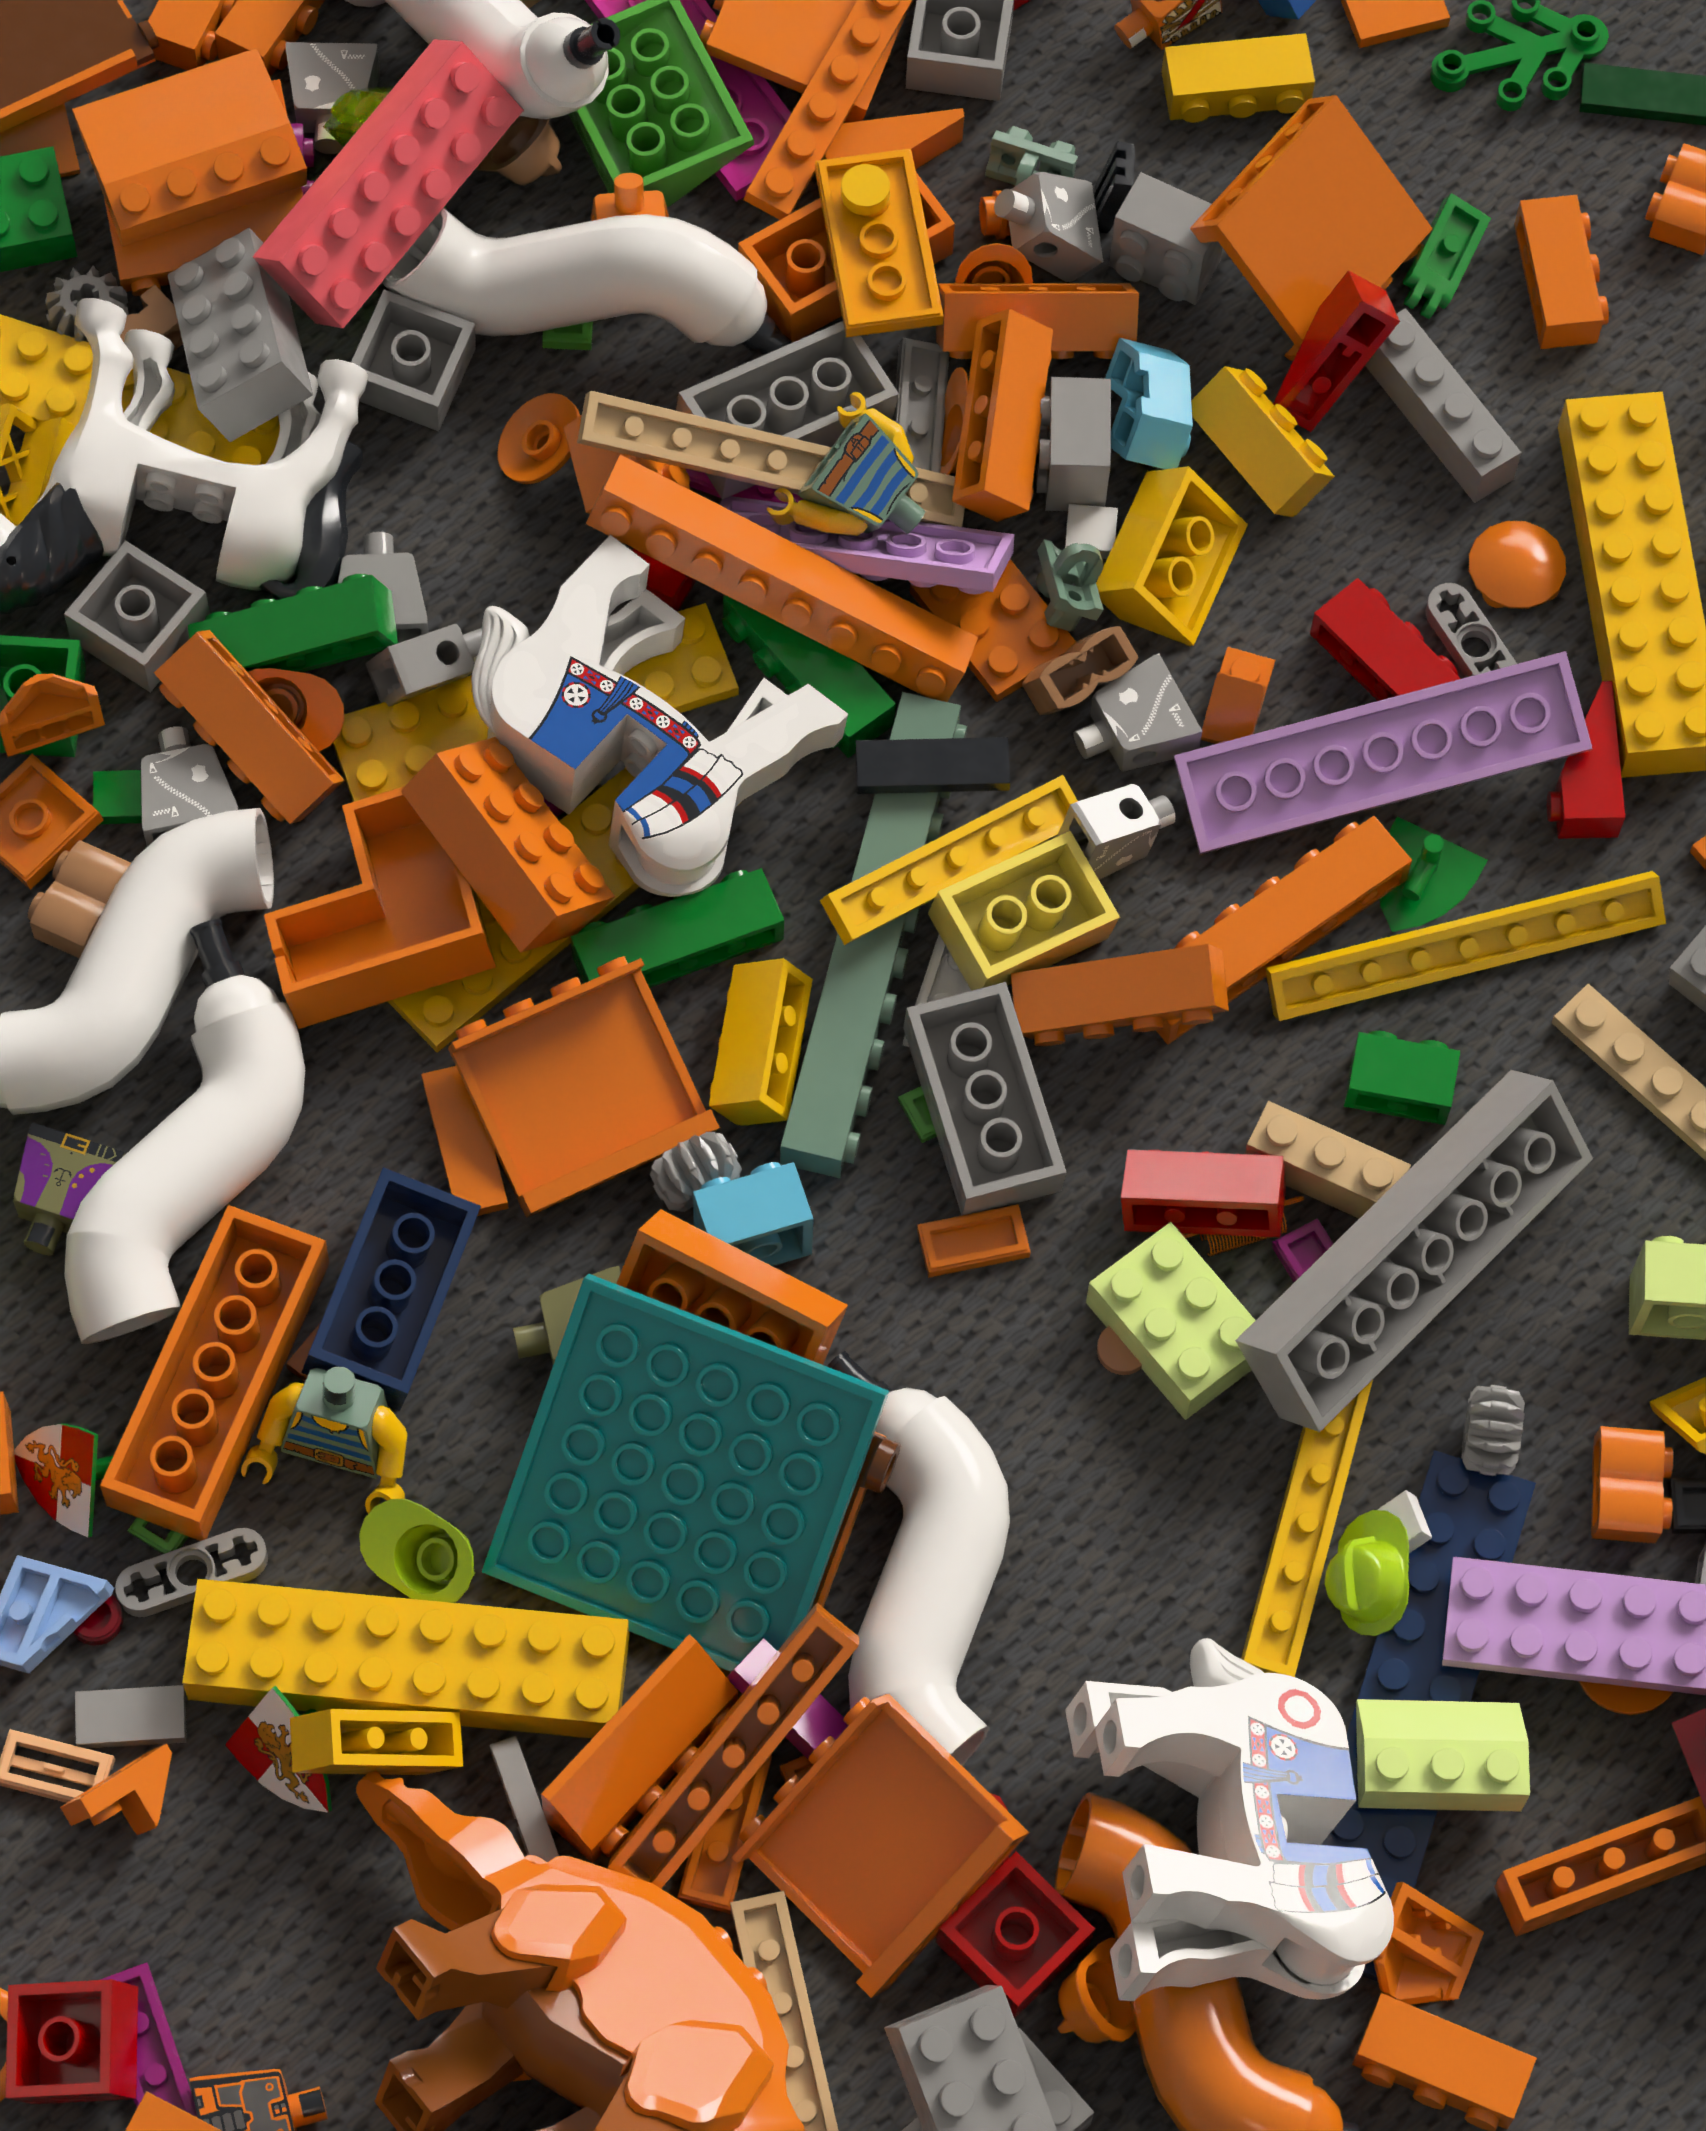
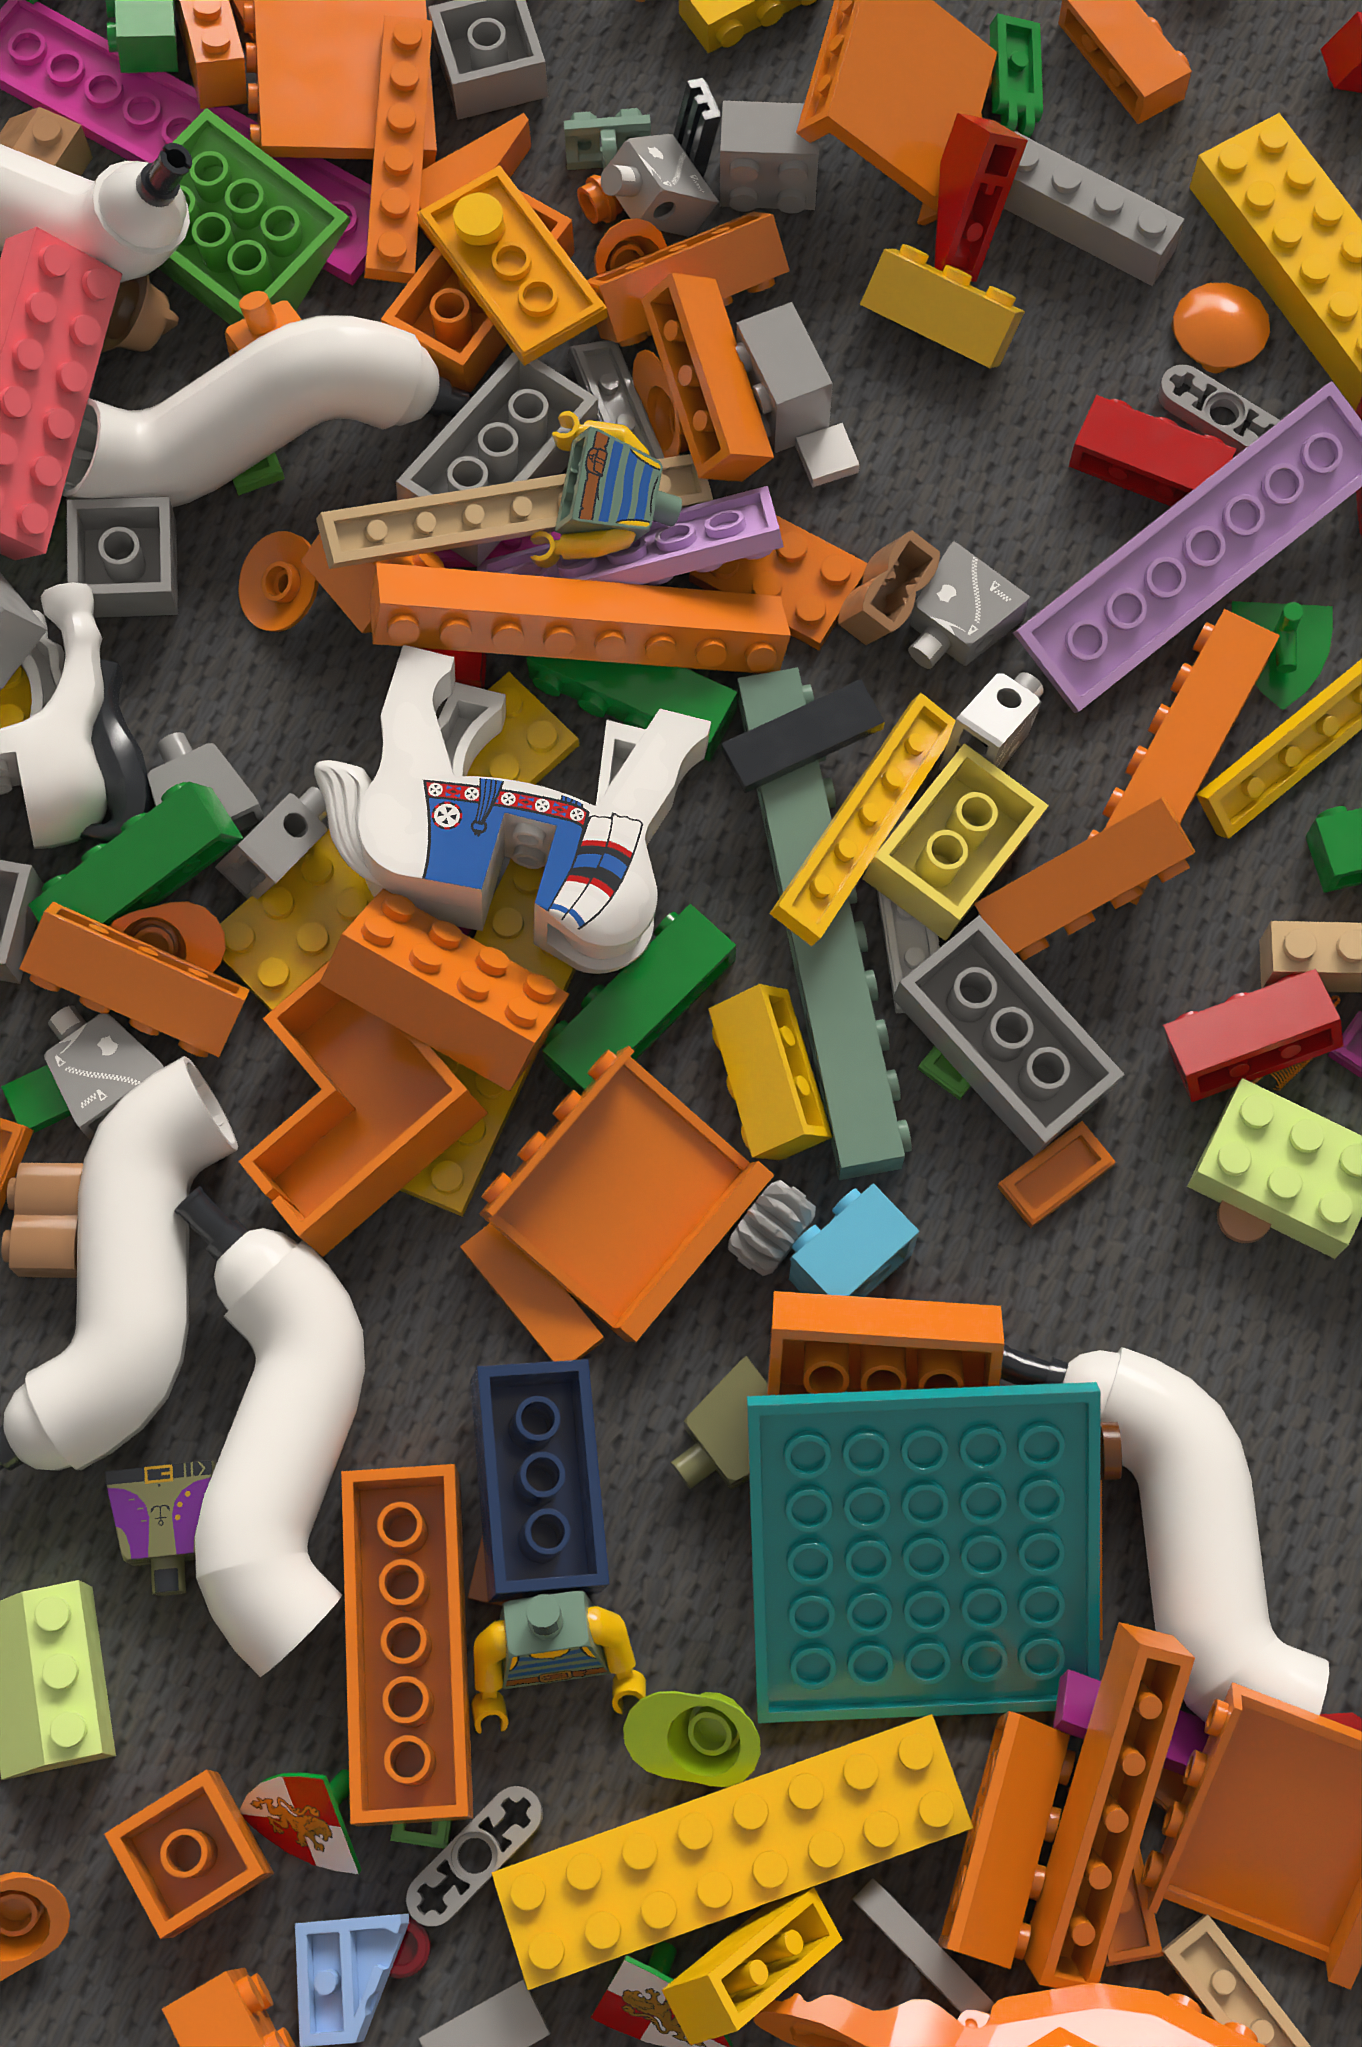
camera: 20 degrees left, 5 degrees up
(1060, 570) = (844, 490): sand green hips -> none
(1155, 404) = (833, 311): medium azure brick -> none
(1171, 555) = (911, 446): yellow slope -> none
(1237, 696) = (1038, 552): orange slope -> none

